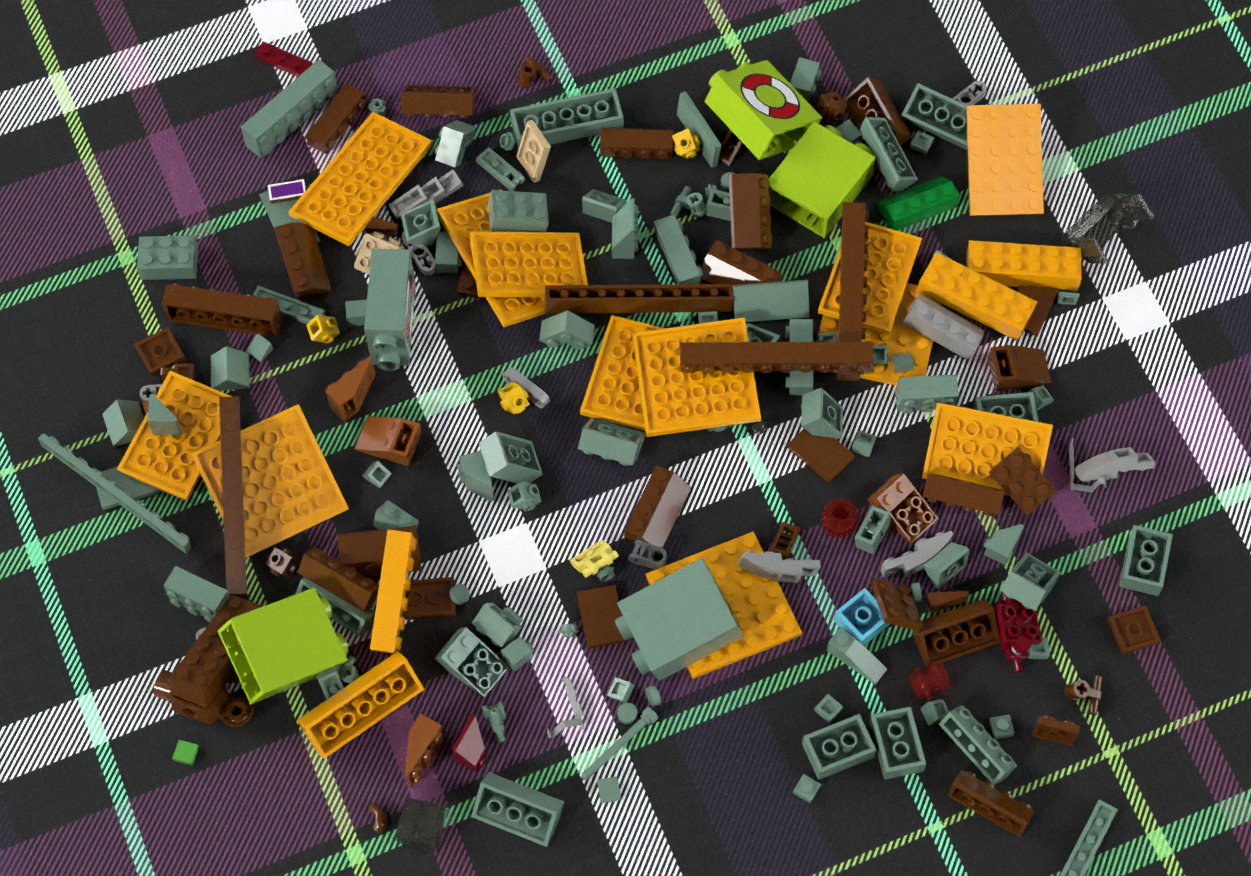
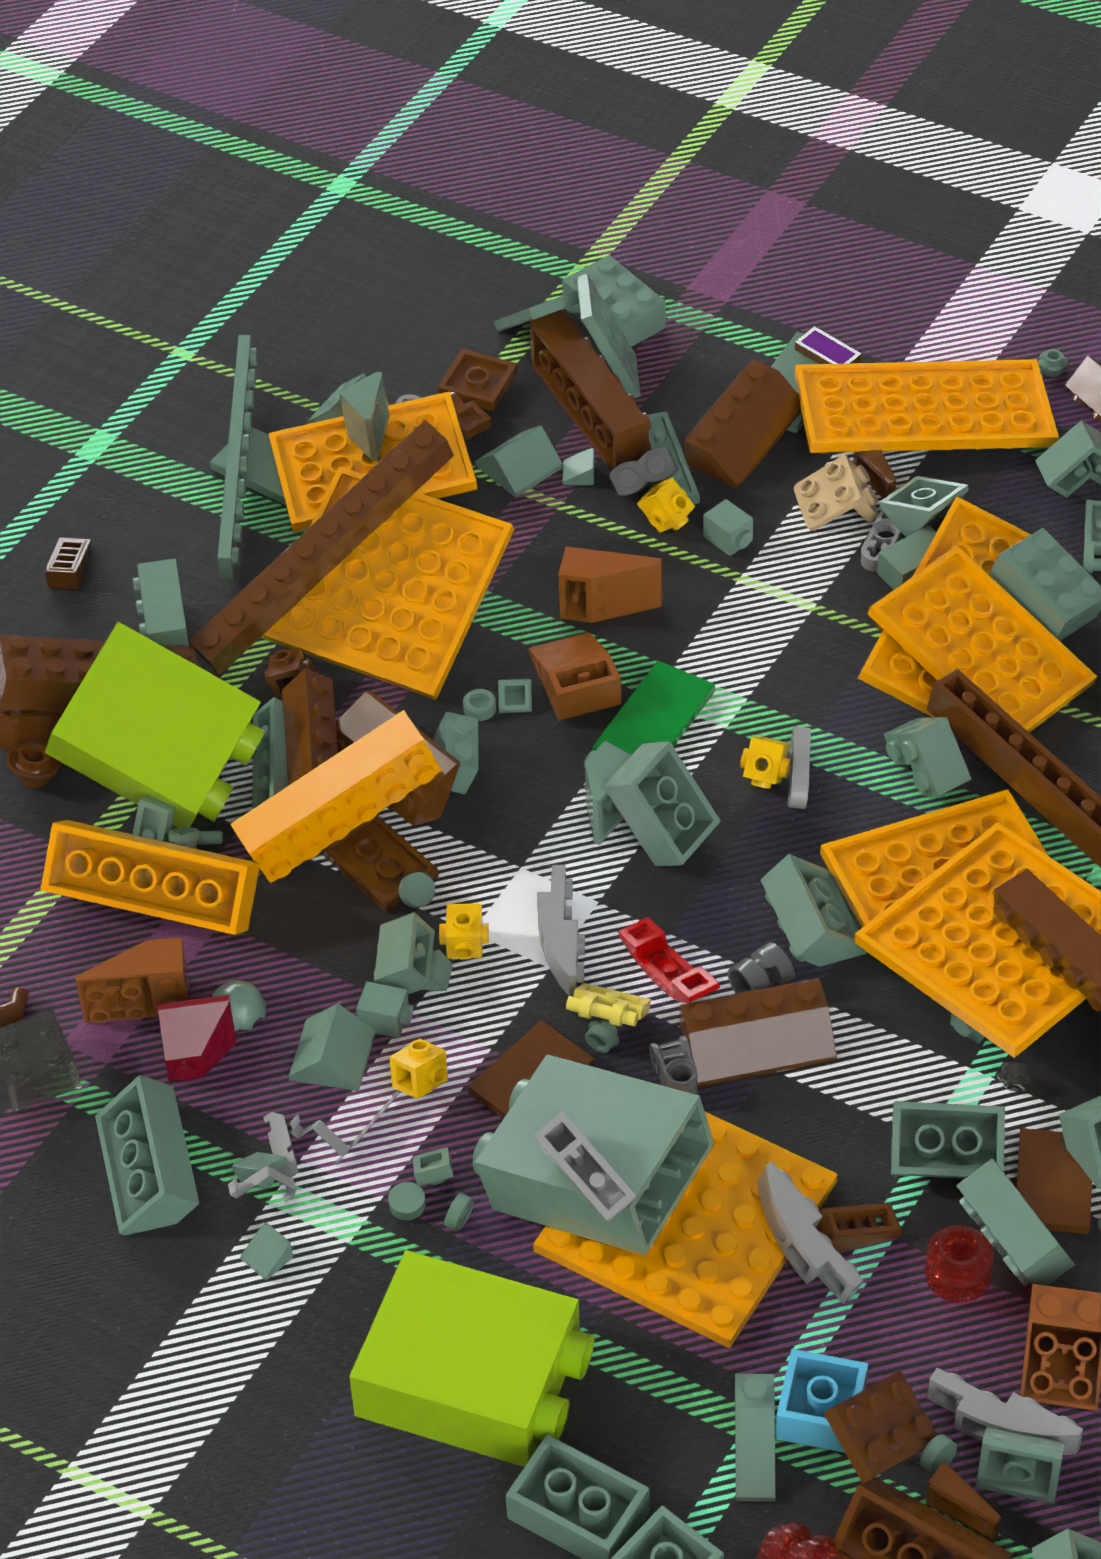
camera: 55 degrees right, 15 degrees down
(119, 625) = (64, 568): none -> reddish brown slope
(152, 293) = (537, 311): none -> sand green tile
(203, 276) = (608, 335): none -> sand green tile
(282, 59) = (1017, 245): dark red plate -> none
(289, 109) = (945, 276): sand green brick -> none
(296, 321) = (635, 476): none -> dark grey brick
(336, 118) = (986, 332): reddish brown brick -> none
(368, 493) = (479, 704): none -> sand green tile
(390, 308) = (753, 535): sand green brick -> none
(434, 189) = (986, 491): light grey slope -> none
(442, 426) = (658, 709): none -> green tile
(459, 714) = (245, 1001): none -> sand green hair
(471, 661) = (325, 963): sand green slope -> none
(495, 715) = (260, 1041): sand green piece -> none
(504, 590) = (464, 931): none -> yellow brick
(519, 691) = (333, 1050): none -> sand green slope
(524, 496) = (629, 865): sand green brick -> none
(539, 554) = (560, 933): none -> light grey slope
(562, 763) = (257, 1161): none -> sand green slope
(565, 660) = (418, 1068): none -> yellow brick
(565, 751) = (279, 1142): none -> light grey piece
(568, 630) = (473, 1048): sand green plate -> none
(591, 520) = (664, 965): none -> red slope
(628, 485) = (764, 969): none -> dark grey wheel
(648, 716) = (419, 1228): sand green piece -> none
(705, 629) = (584, 1166): none -> light grey slope
(738, 741) = (470, 1359): none -> lime brick
(776, 478) = (945, 1138): none -> sand green slope
(806, 788) = (479, 1511): sand green plate -> none
(828, 708) = (635, 1454): sand green plate -> none
(841, 484) = (1013, 1226): none -> sand green brick
(872, 530) = (983, 1322): sand green brick -> none

